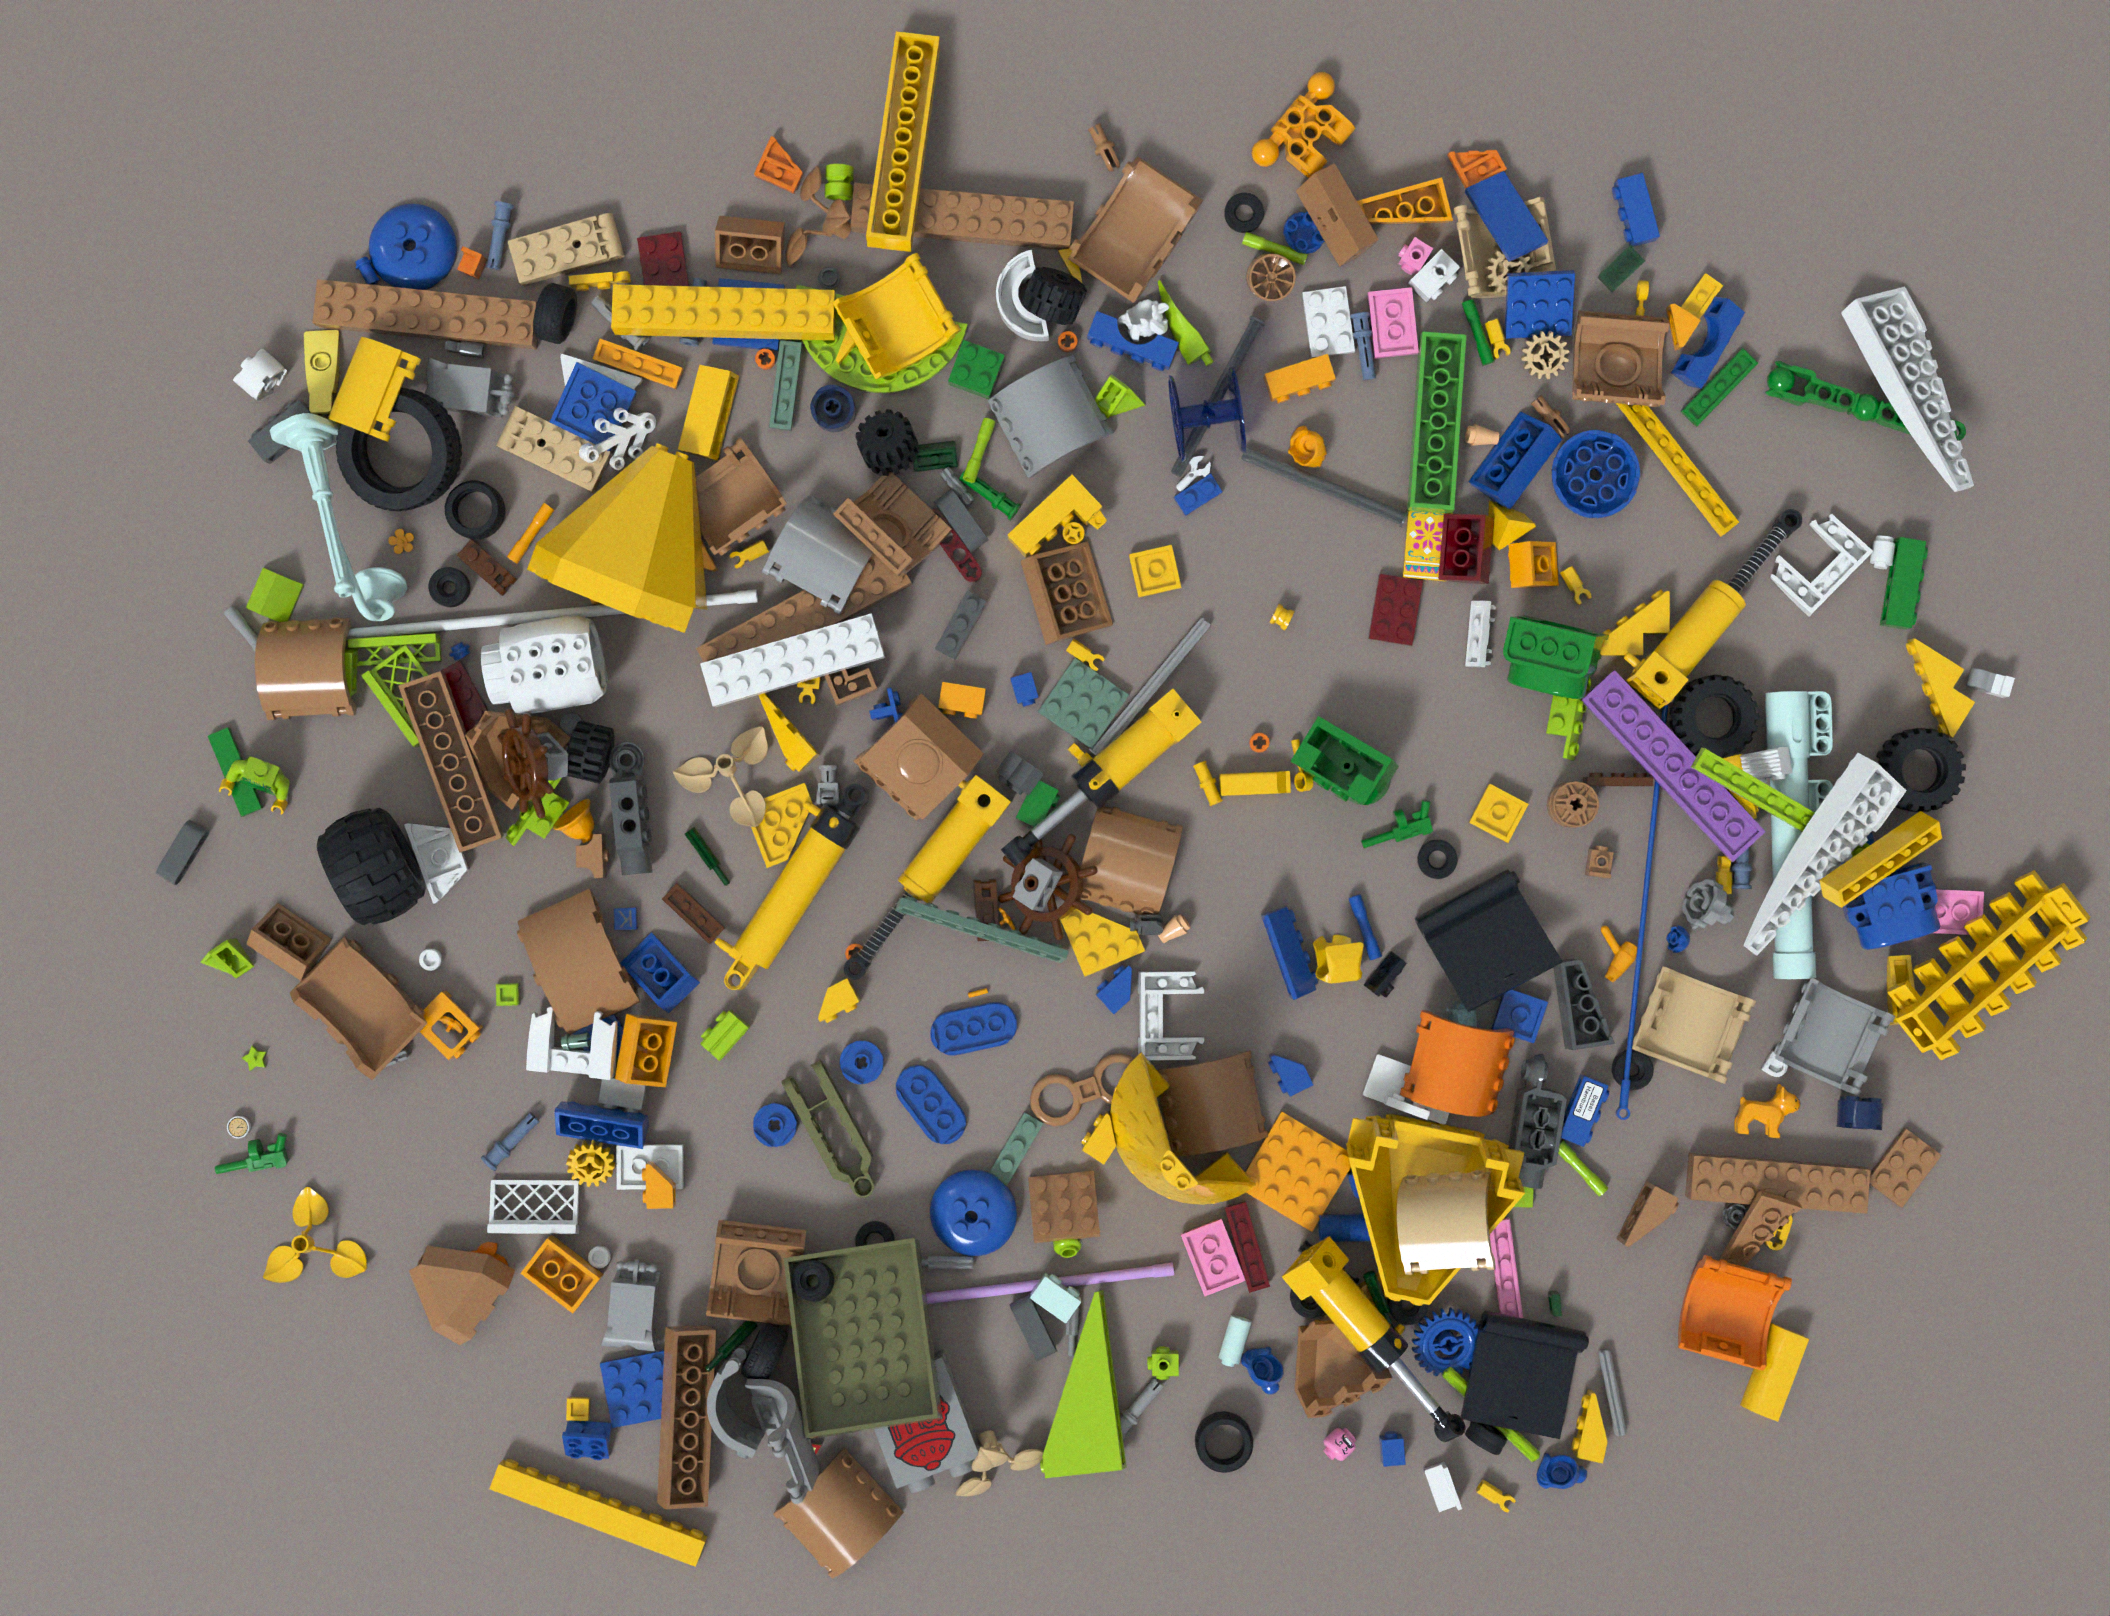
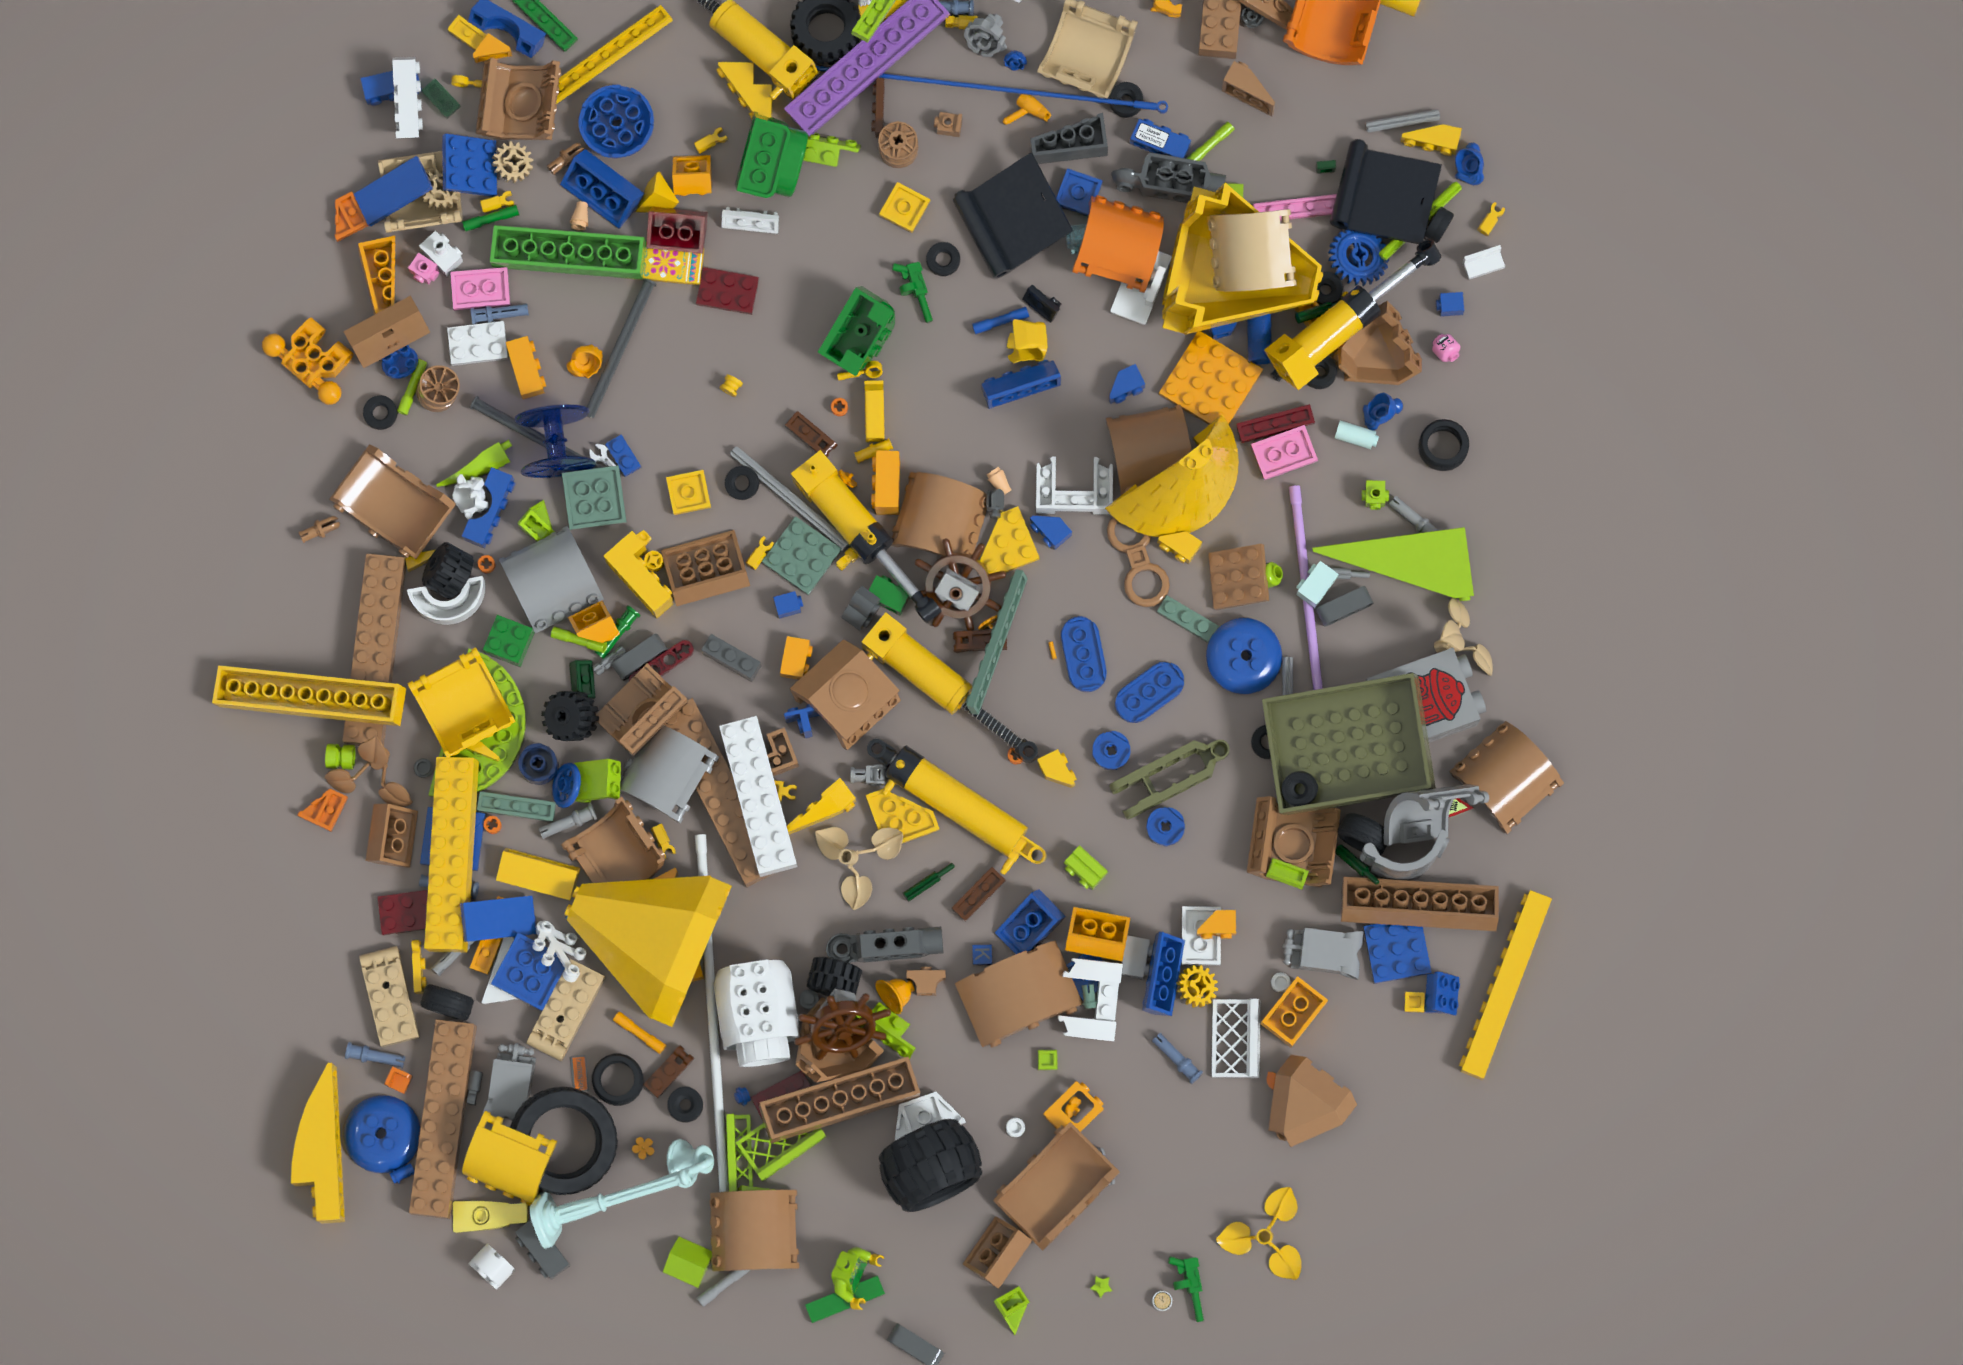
camera: 90 degrees left, 10 degrees down
(385, 176) = (318, 1150): none -> yellow slope
(484, 467) = (579, 1072): none -> orange sticker
(651, 367) = (498, 918): none -> blue tile
(719, 1265) = (1287, 873): none -> lime tile
(773, 454) = (577, 818): none -> light grey pin
(808, 441) = (566, 785): none -> blue plate
(812, 475) = (599, 780): none -> lime panel
(995, 466) = (594, 623): none -> light orange slope
(1146, 462) = (594, 497): none -> sand green plate
(1166, 619) = (752, 478): none -> black tyre
(1167, 799) = (886, 482): none -> light orange brick
(1173, 753) = (846, 478): none -> light orange plant
(1225, 710) = (810, 433): none -> reddish brown plate
(1619, 226) = (405, 97): none -> white wedge

